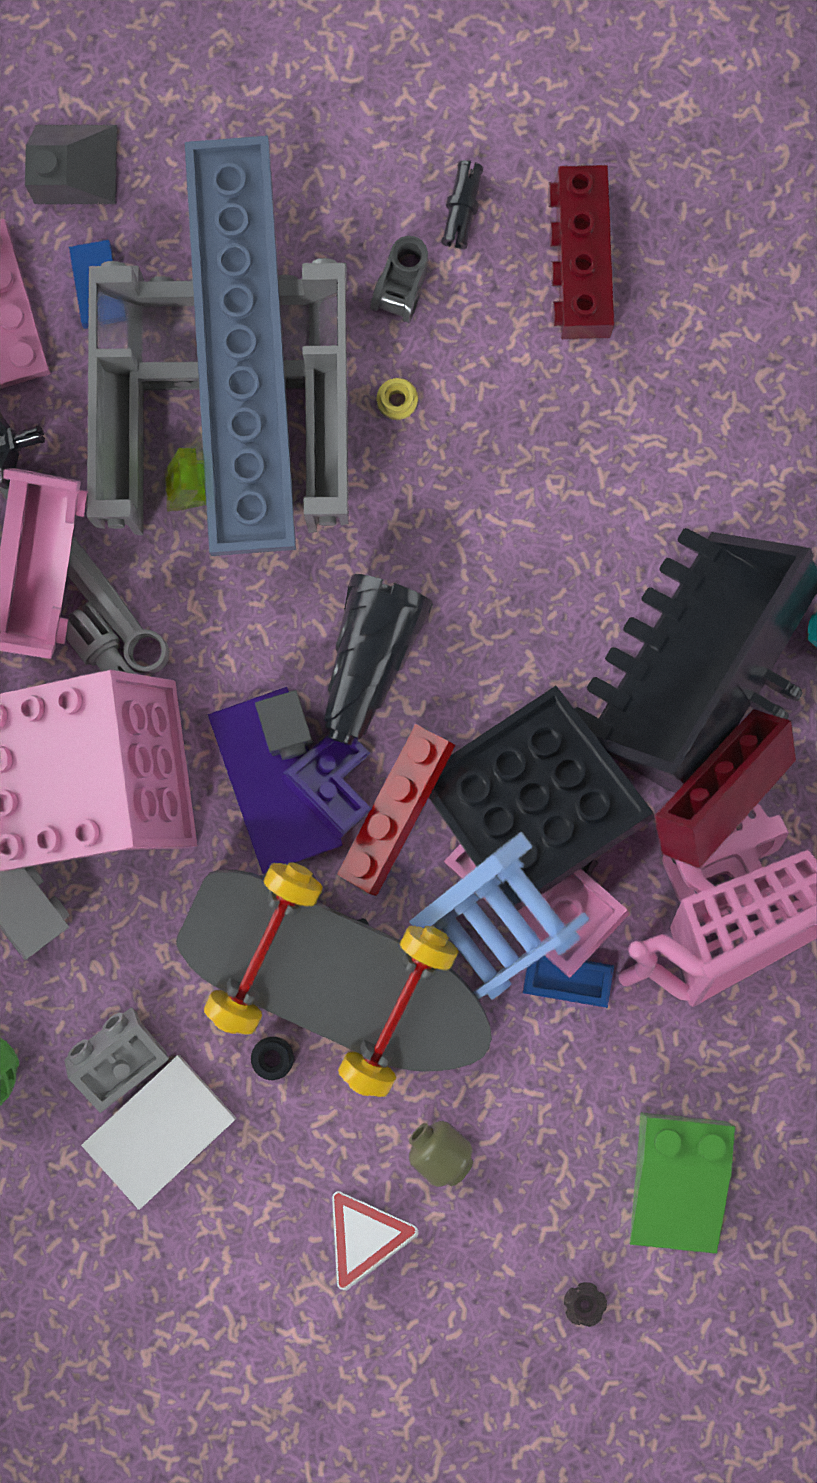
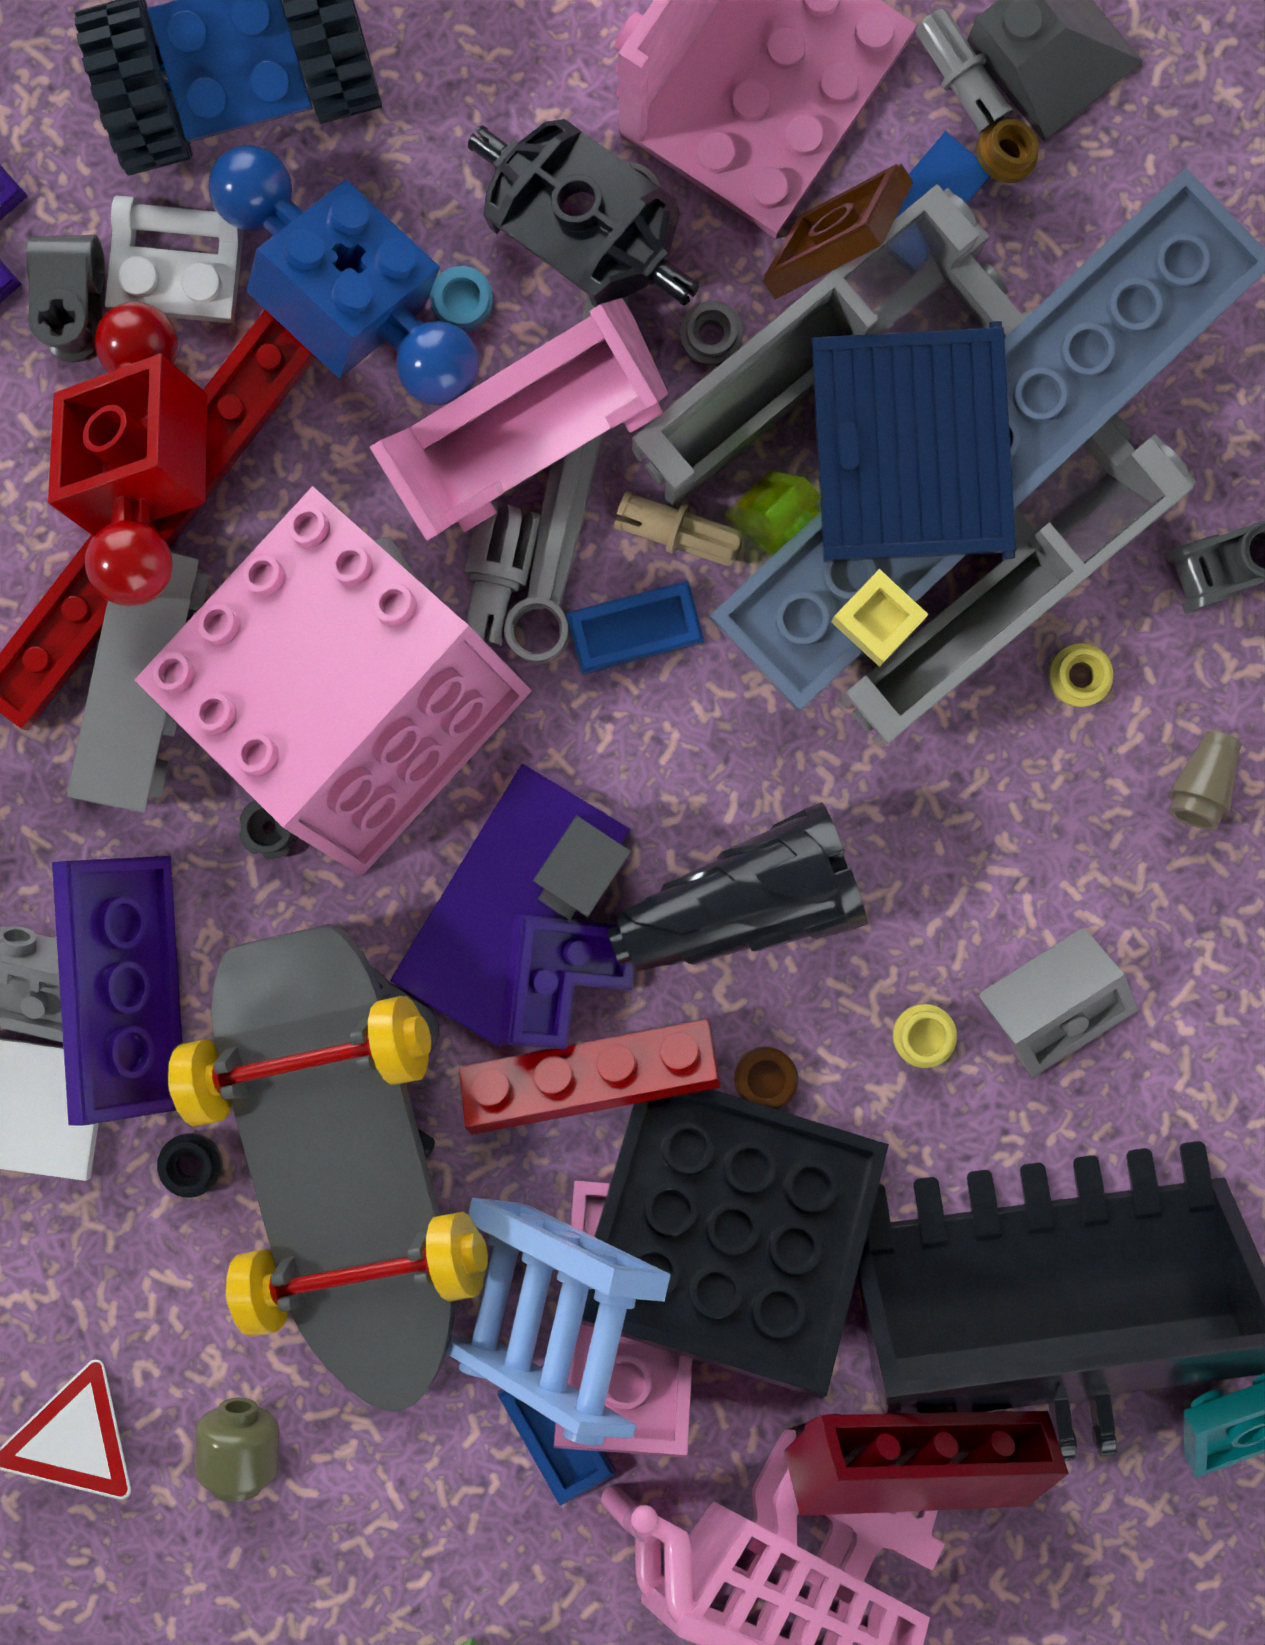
camera: 50 degrees right, 5 degrees up
(46, 214) = (962, 69): none -> light grey axle
(59, 437) = (711, 313): none -> light grey plate
(71, 335) = (838, 231): none -> reddish brown tile
(104, 224) = (1014, 138): none -> pearl gold plate
(120, 872) = (257, 840): none -> dark grey plate
(147, 1015) = (117, 985): none -> dark purple tile
(155, 538) = (678, 529): none -> tan axle
(187, 601) = (635, 627): none -> blue tile
(208, 382) = (913, 444): none -> dark blue piece
(280, 467) = (879, 617): none -> light yellow plate
(471, 720) = (766, 1077): none -> reddish brown tile
(504, 382) = (1207, 782): none -> dark tan cone
(515, 623) = (924, 1035): none -> light yellow plate
(554, 541) = (1059, 1001): none -> light grey panel

